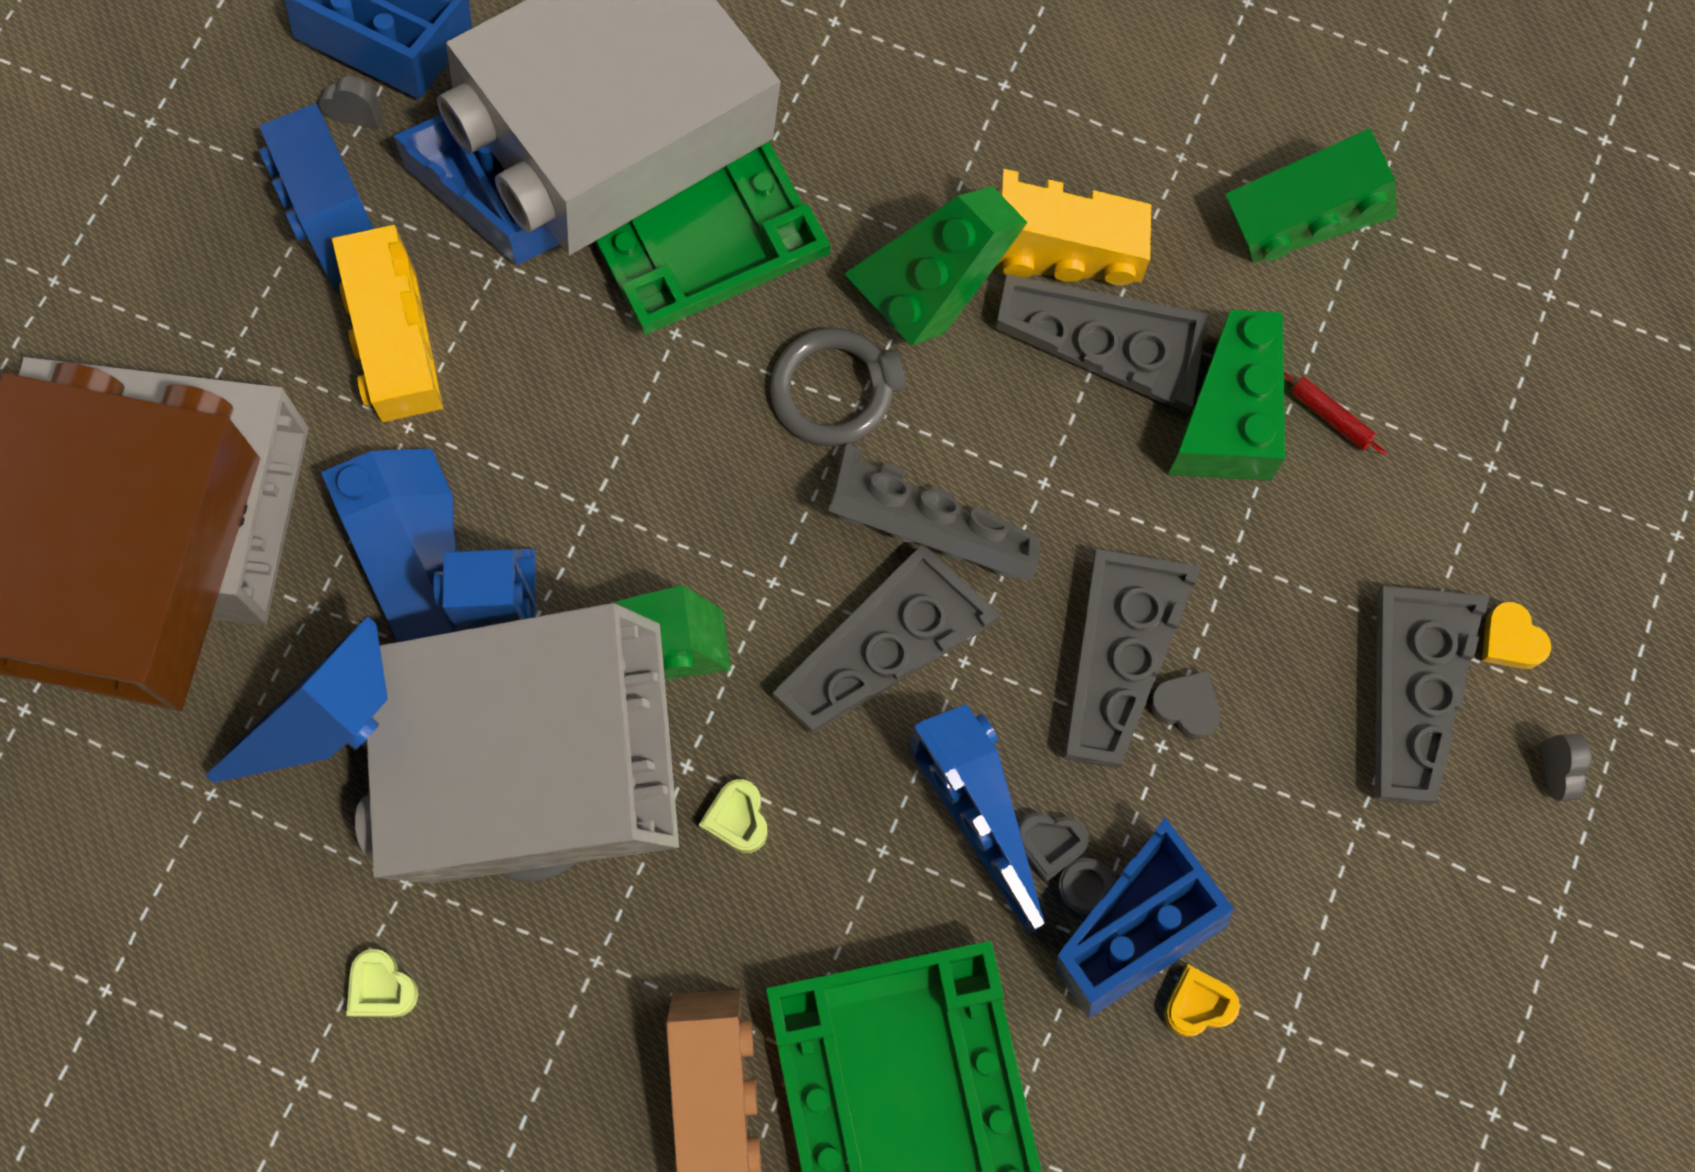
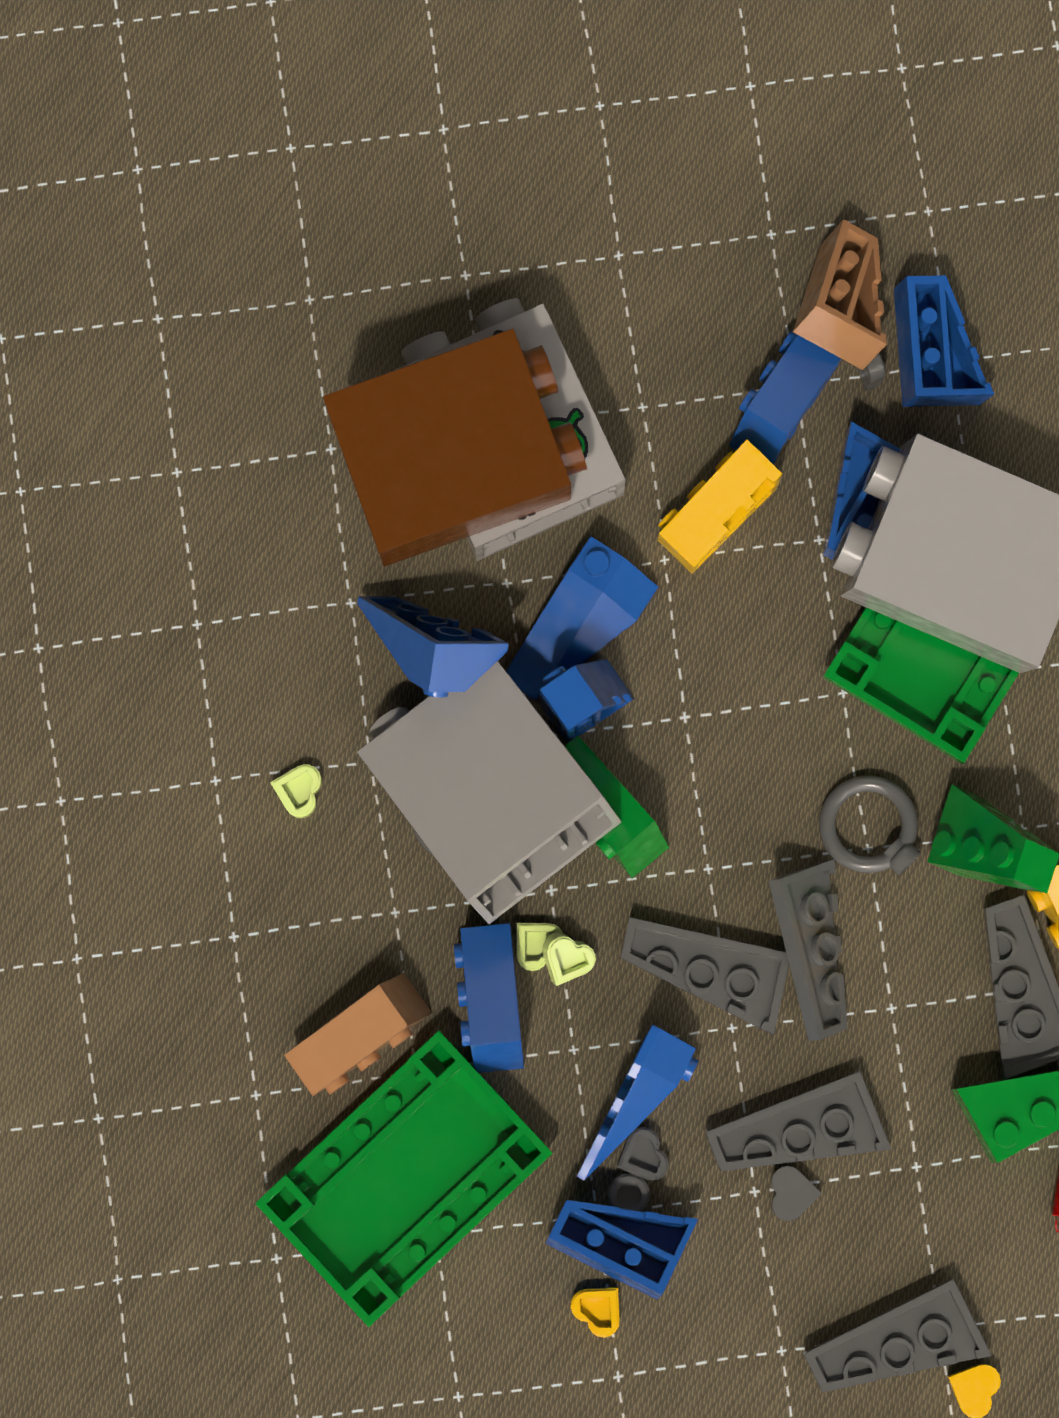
camera: 65 degrees right, 10 degrees up
(261, 72) = (842, 297): none -> medium nougat wedge
(766, 904) = (489, 998): none -> blue wedge
(774, 791) = (567, 958): none -> yellowish green tile

